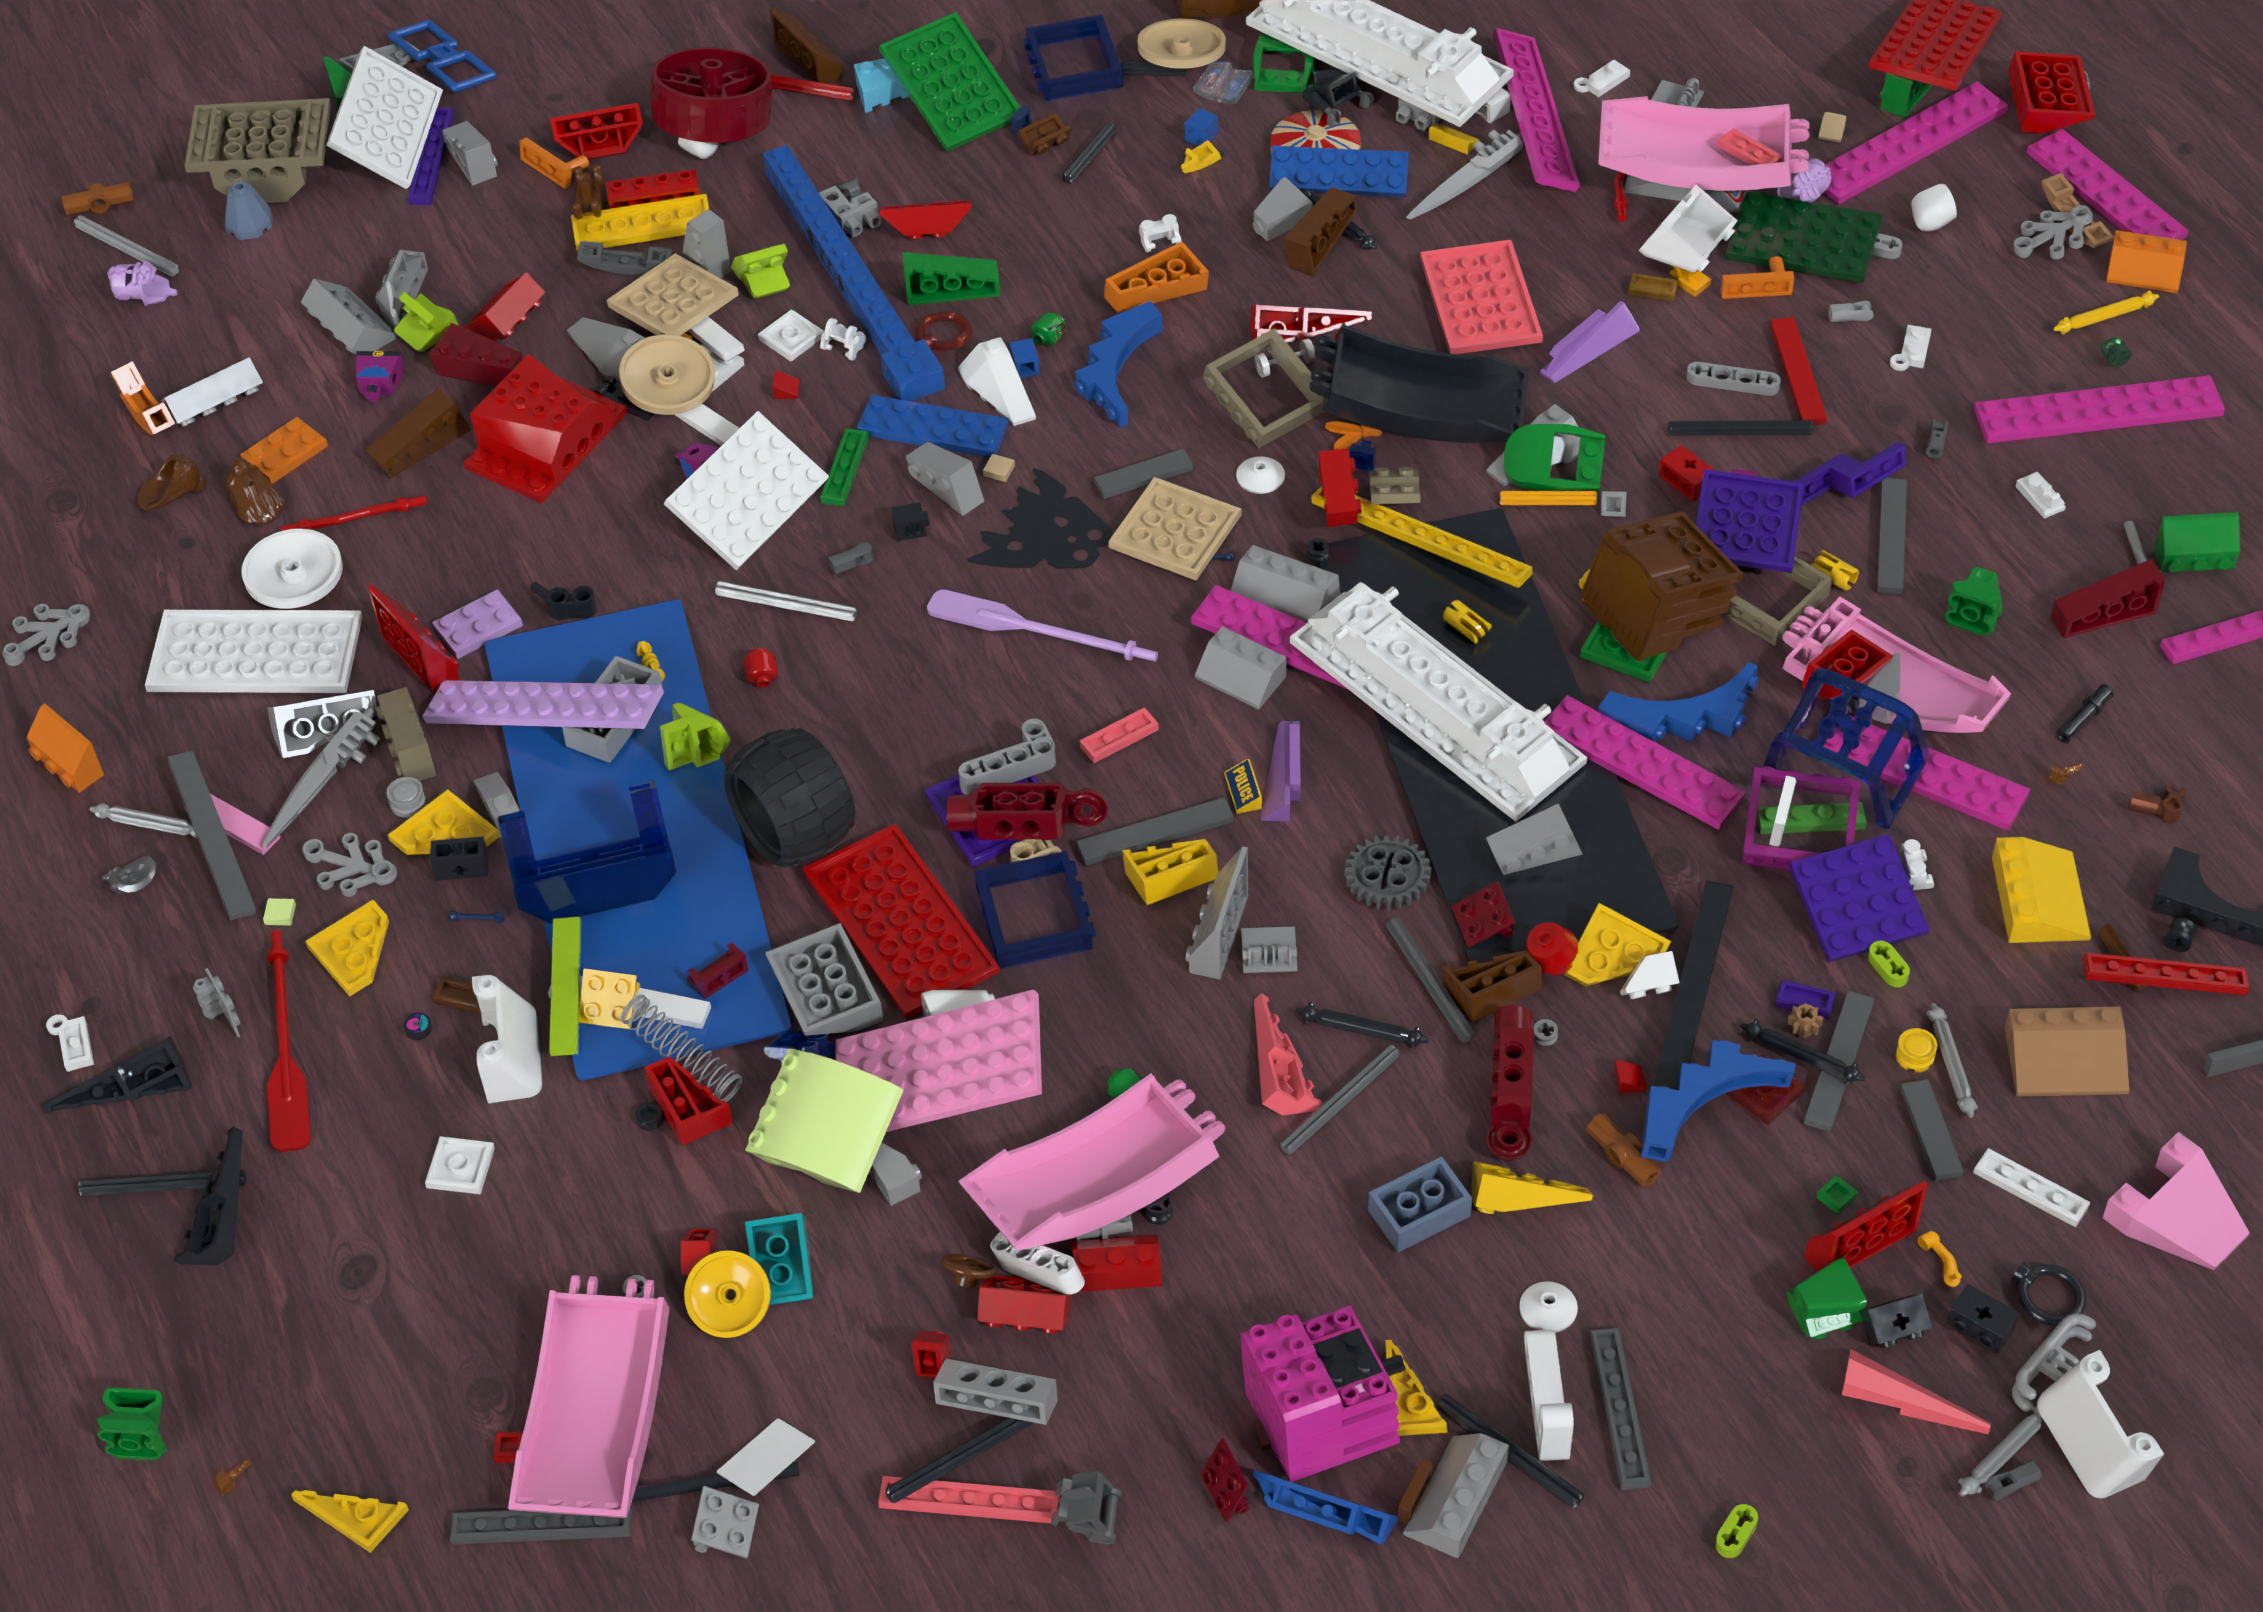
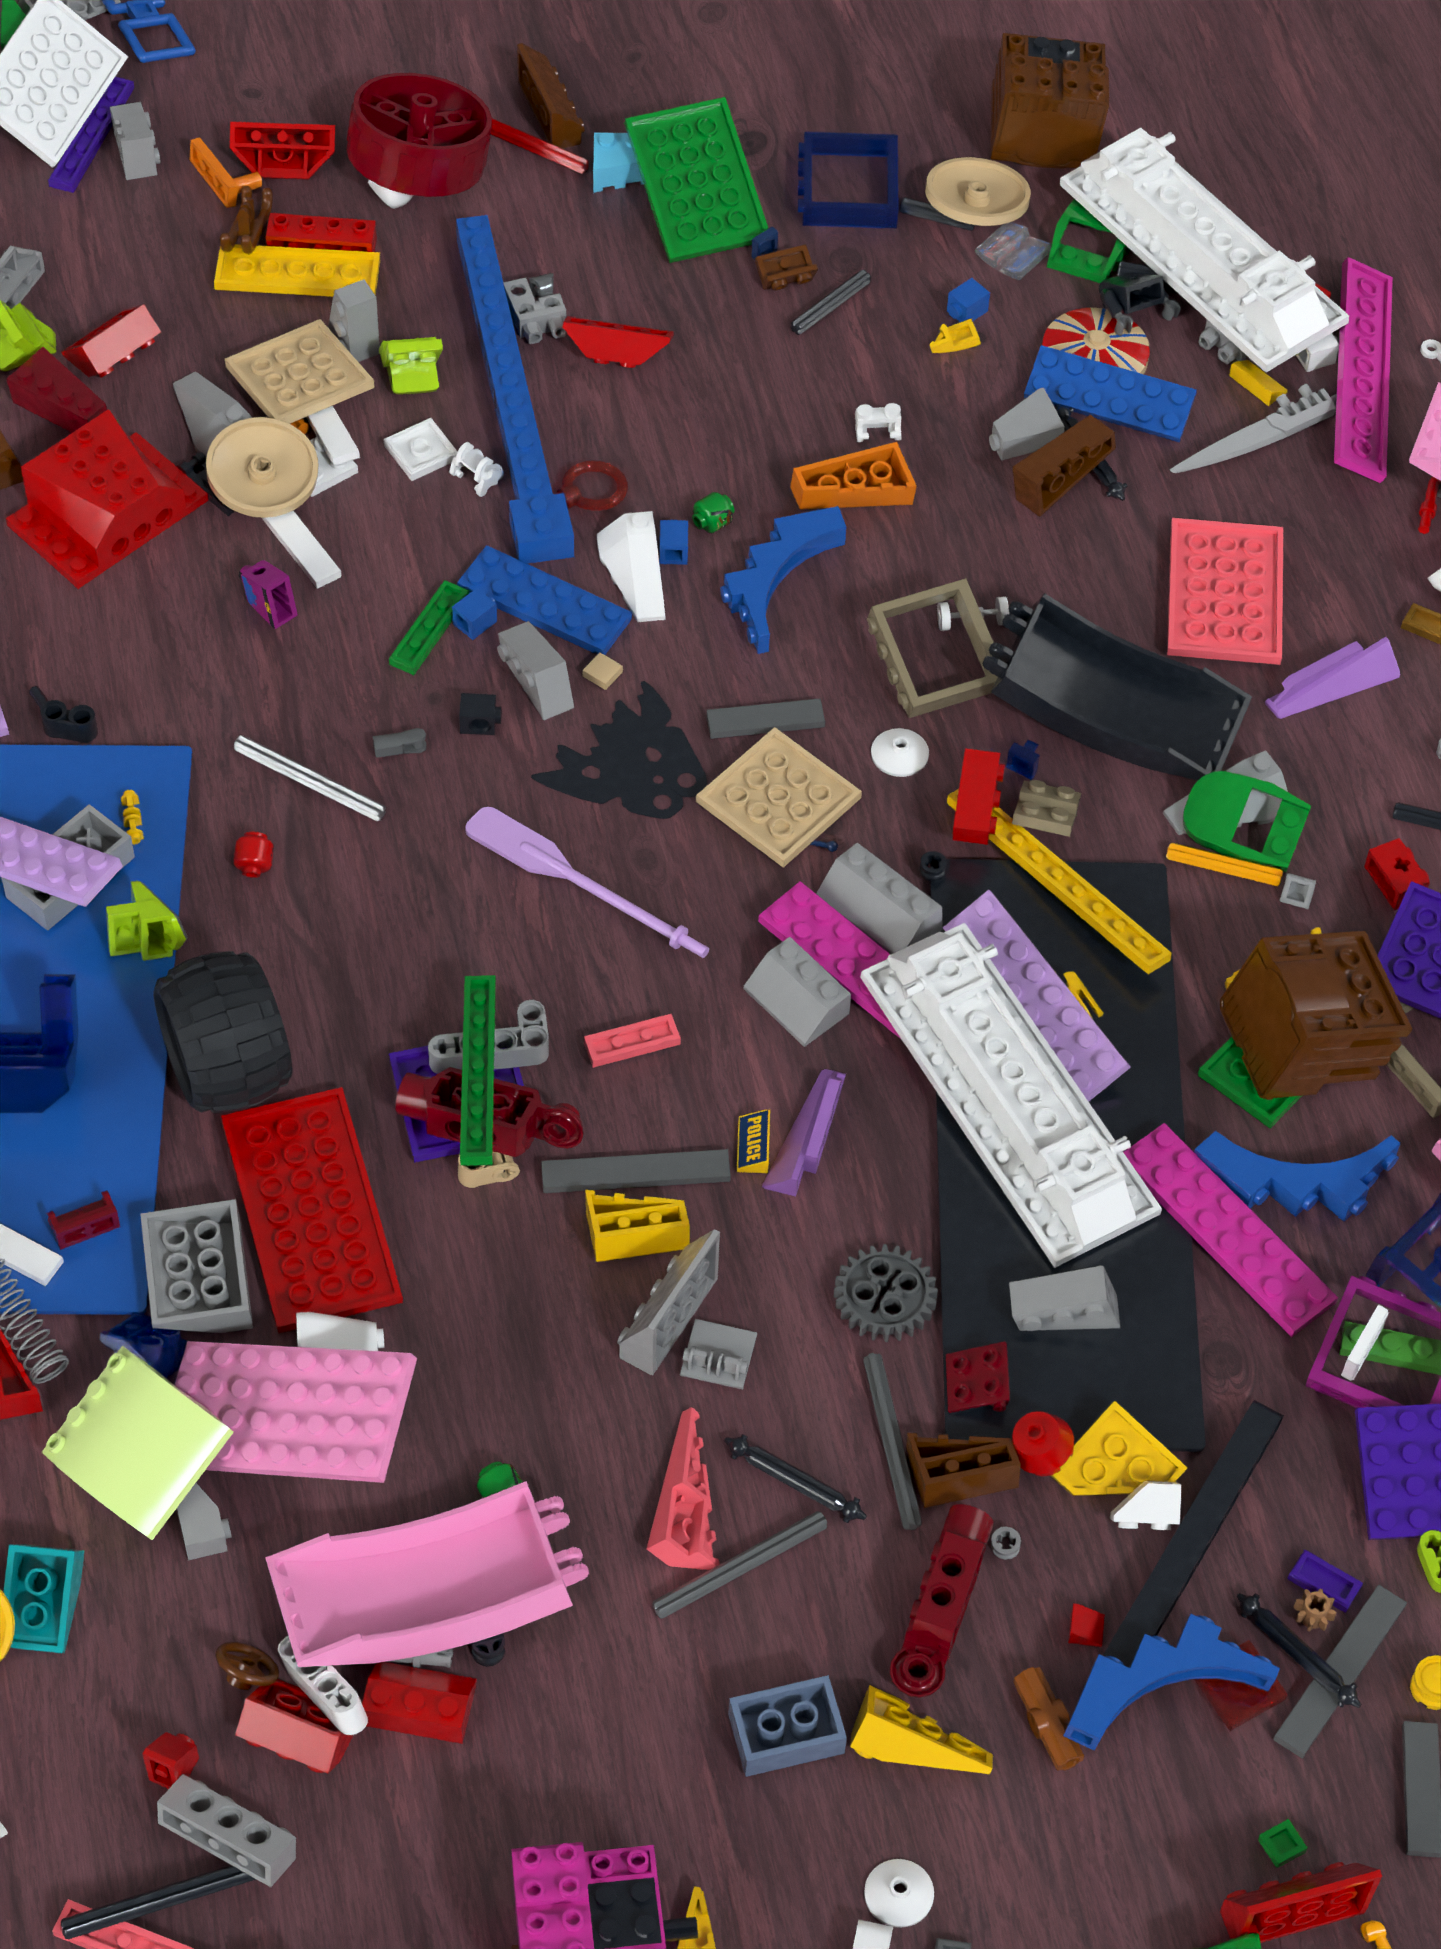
camera: 10 degrees right, 5 degrees up
(621, 261) = (259, 313): dark grey slope -> none
(746, 490) = (304, 632): white plate -> none
(785, 386) = (393, 511): red slope -> none
(879, 447) = (474, 613): none -> blue brick
(948, 278) = (618, 422): green wedge -> none
(1009, 777) = (478, 1071): none -> green plate
(1042, 947) = (465, 1285): clear blue window -> none
(1301, 323) = (1004, 573): red wedge -> none
(1352, 433) = (1023, 726): orange piece -> none
(1448, 626) = (1045, 997): none -> lavender plate

